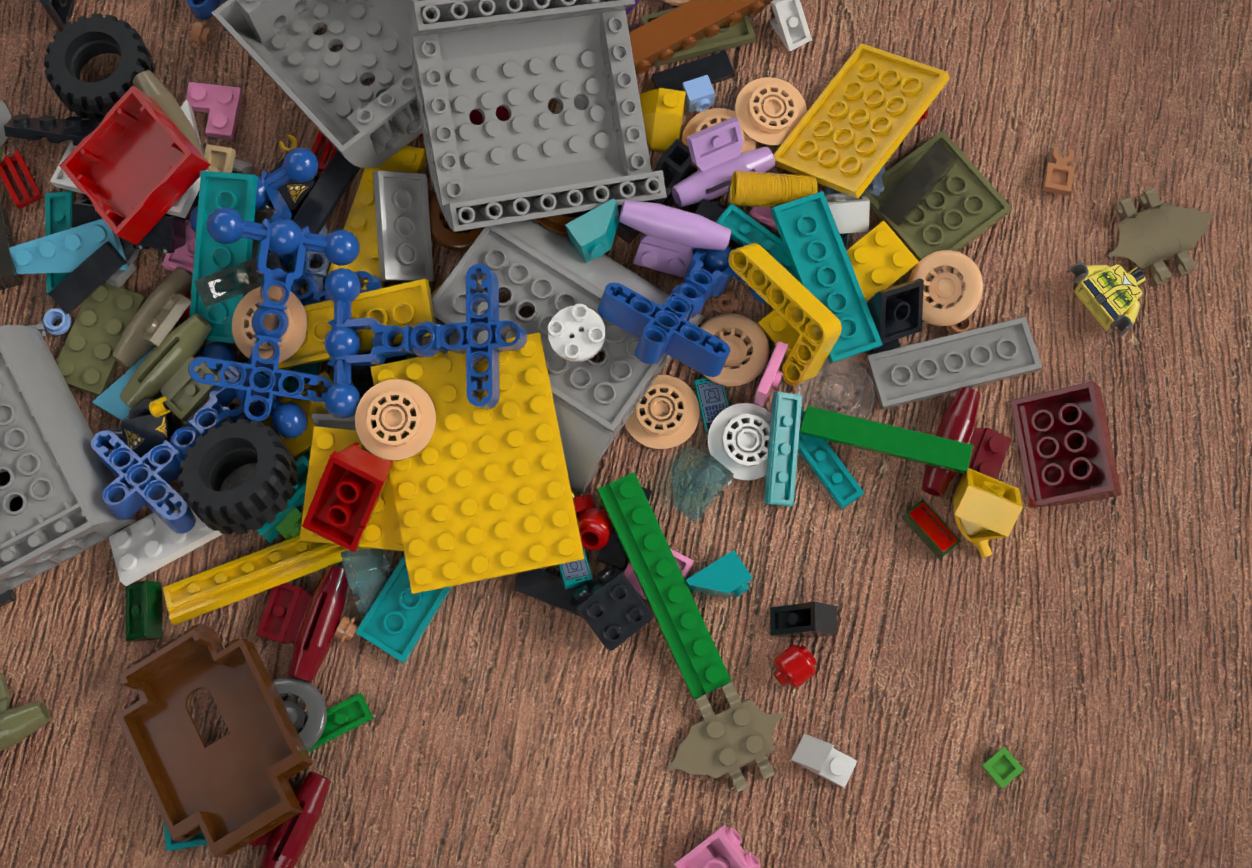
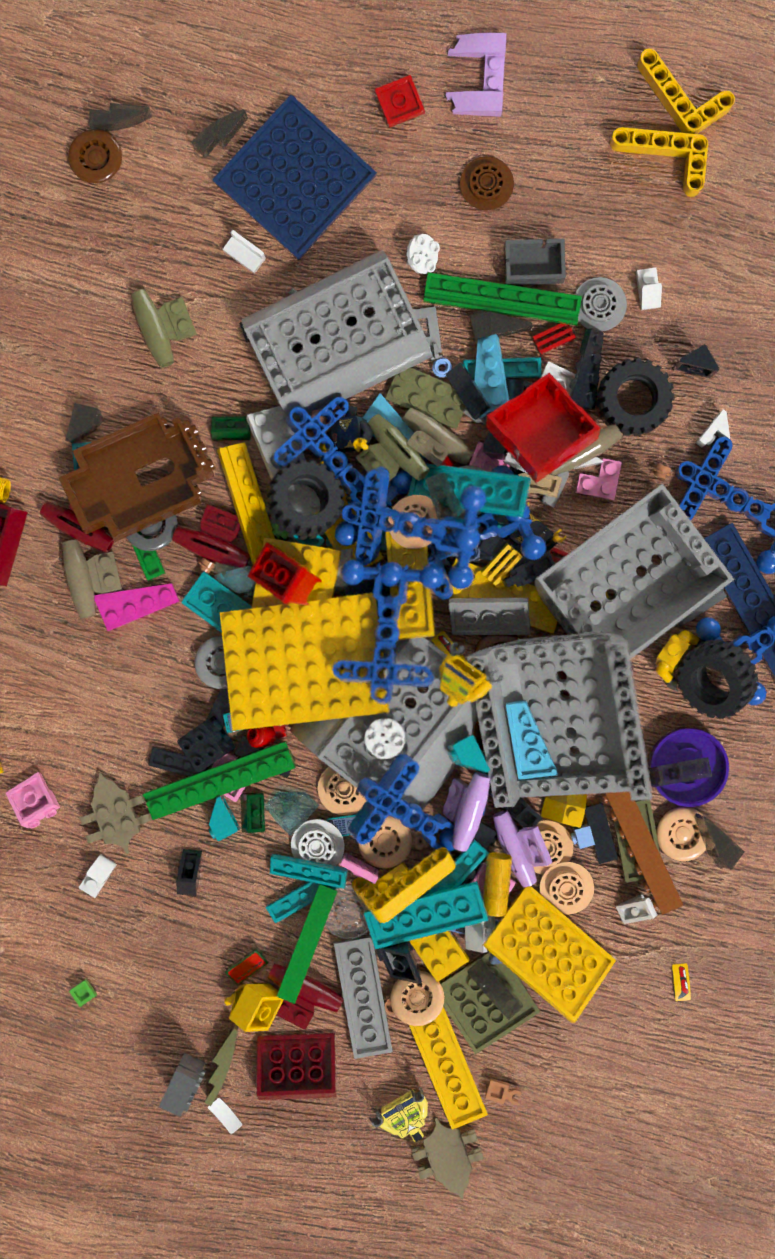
camera: 90 degrees right, 15 degrees up
(131, 833) = (83, 422): none -> clear smoke slope
(314, 198) = (512, 563): none -> yellow tile
(338, 178) = (529, 571): none -> black hinge
(370, 808) = (89, 576): none -> dark tan plate
(395, 419) = (334, 608): light nougat wheel -> none
(411, 741) = (129, 605): none -> dark pink wing
(487, 233) = (462, 680): none -> yellow torso
(490, 598) = (217, 663): none -> light grey wheel
(577, 159) = (528, 744): none -> medium azure wing
(642, 659) = (171, 761): none -> black tile
(707, 538) = (252, 812): none -> dark green slope
(794, 666) = (158, 863): red head -> none
(1041, 242) = (449, 1071): none -> yellow plate
(1068, 548) = (223, 1059): none -> olive slope
(1127, 597) = (183, 1085): none -> dark grey piece
(1152, 544) = (225, 1115): none -> white sticker

